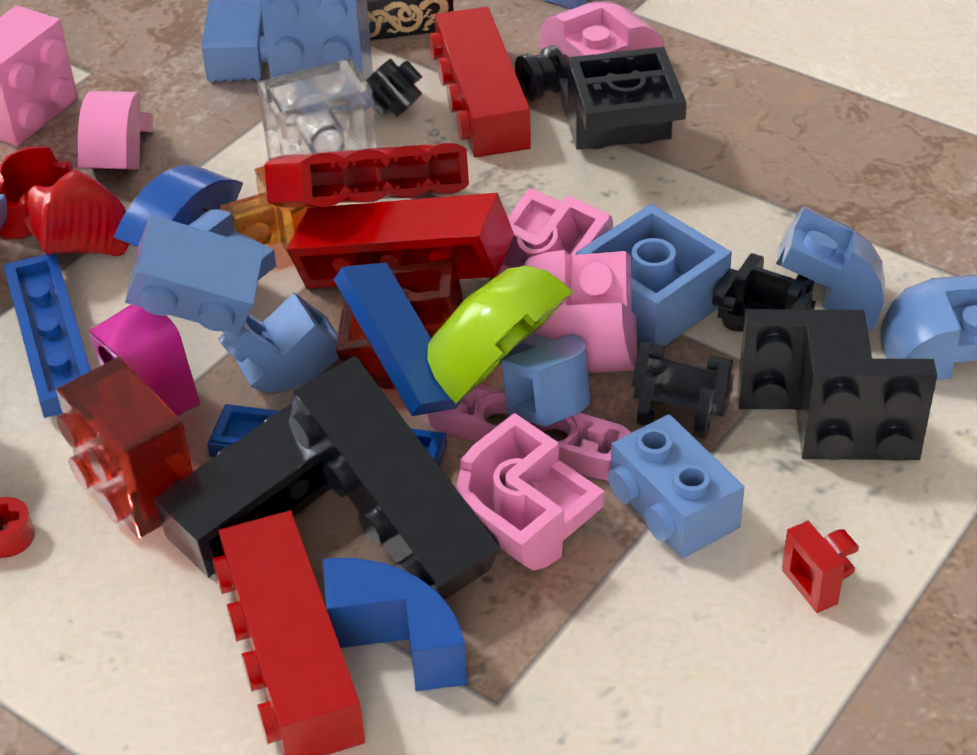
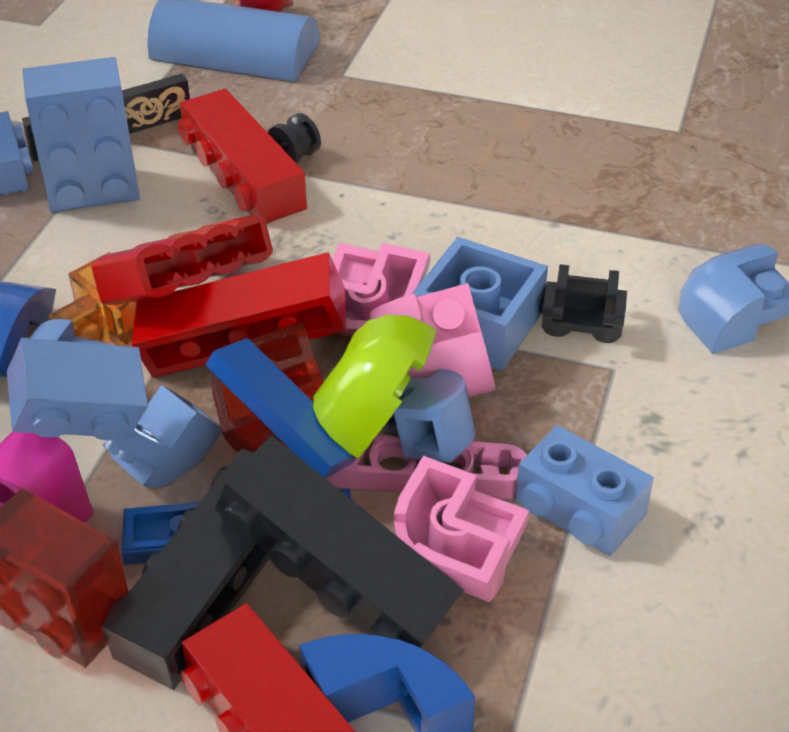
camera: 20 degrees left, 0 degrees up
(317, 110) = (111, 210): clear brick -> none
(394, 87) = (165, 175): black gear -> none
(597, 30) = (334, 100): bright pink brick -> none
(621, 98) = (381, 149): black bracket -> none
(681, 385) = (548, 395): black piece -> none
(818, 563) = (737, 533): red tile -> none
(836, 259) = (633, 254): medium blue brick -> none
(841, 395) = (683, 366): black bracket -> none

